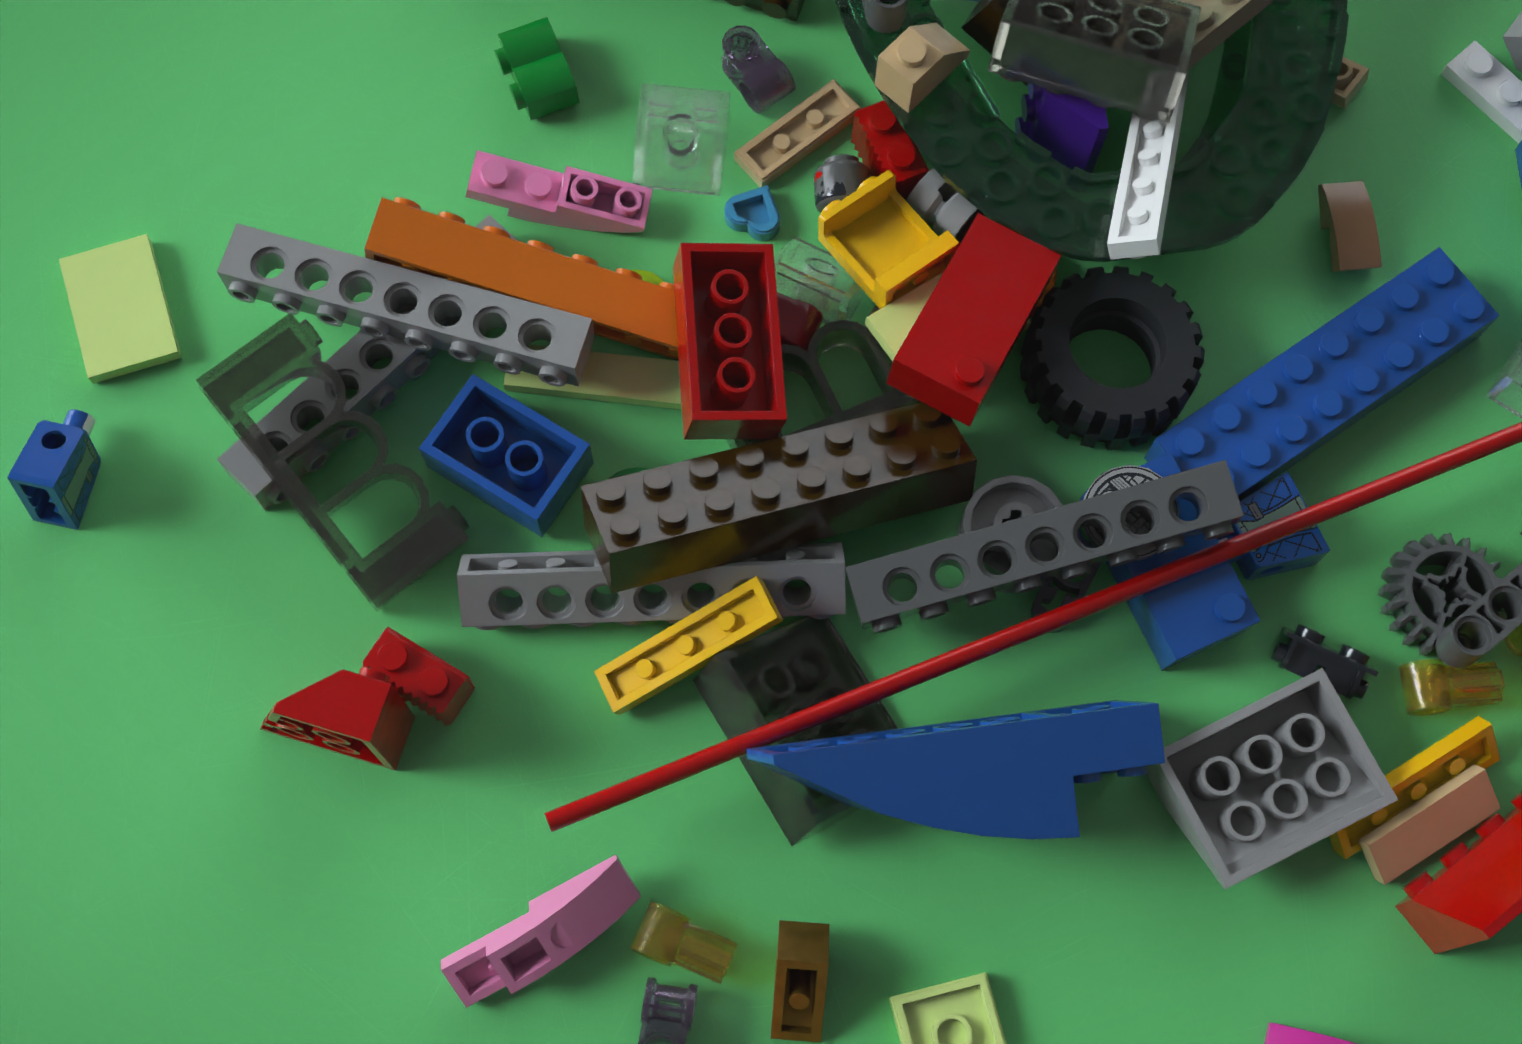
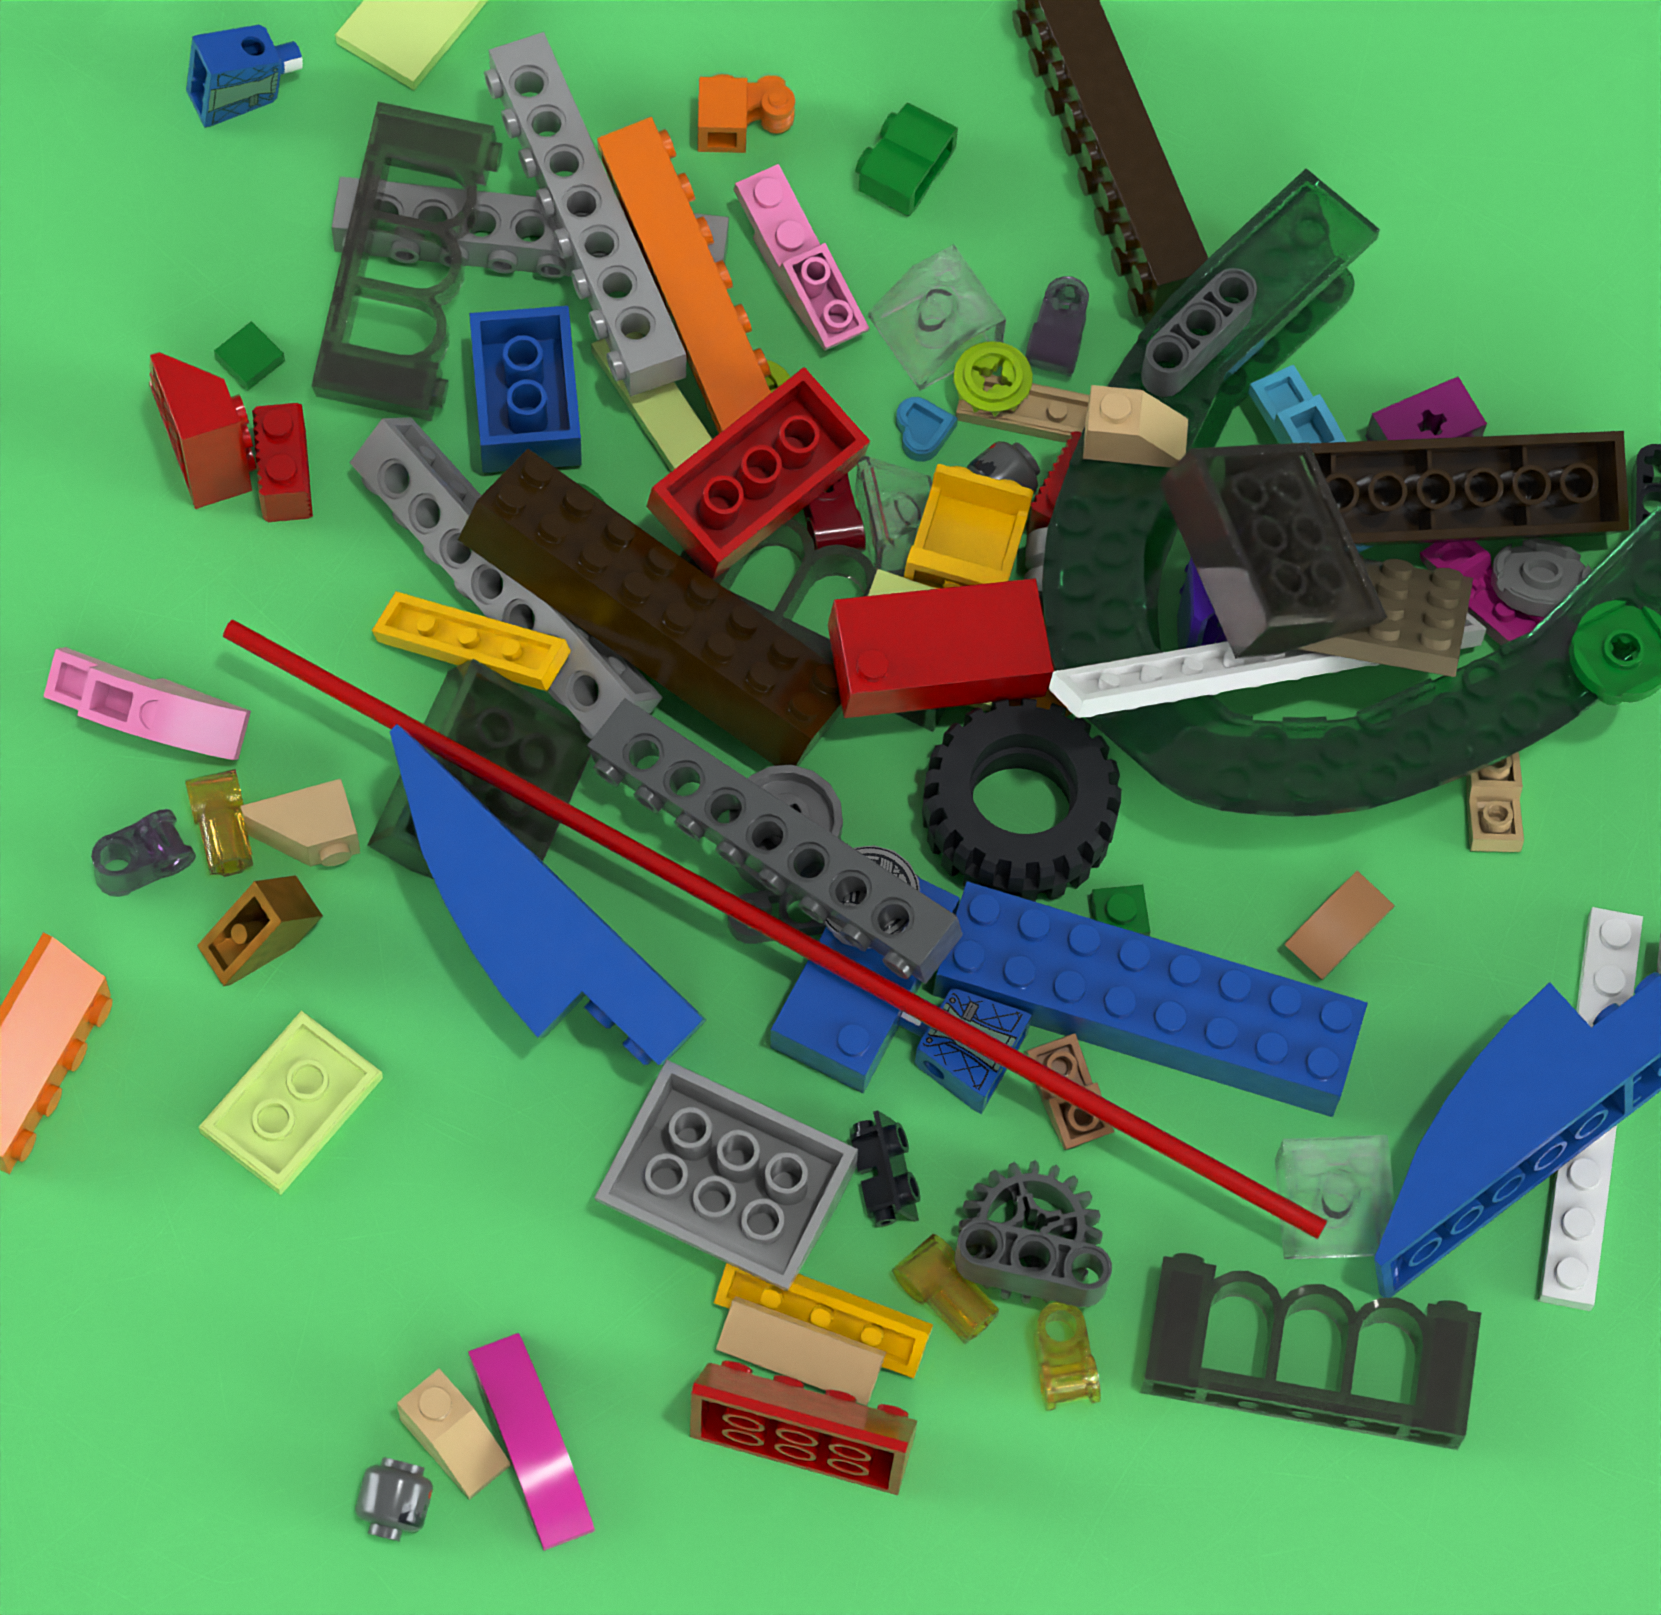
camera: 50 degrees right, 5 degrees down
(302, 636) = (249, 355): none -> green tile
(393, 151) = (733, 103): none -> orange brick
(741, 878) = (306, 824): none -> tan slope
(769, 122) = (984, 360): none -> lime gear
(1232, 358) = (1122, 907): none -> green plate
(1323, 480) = (1069, 1122): none -> medium nougat slope

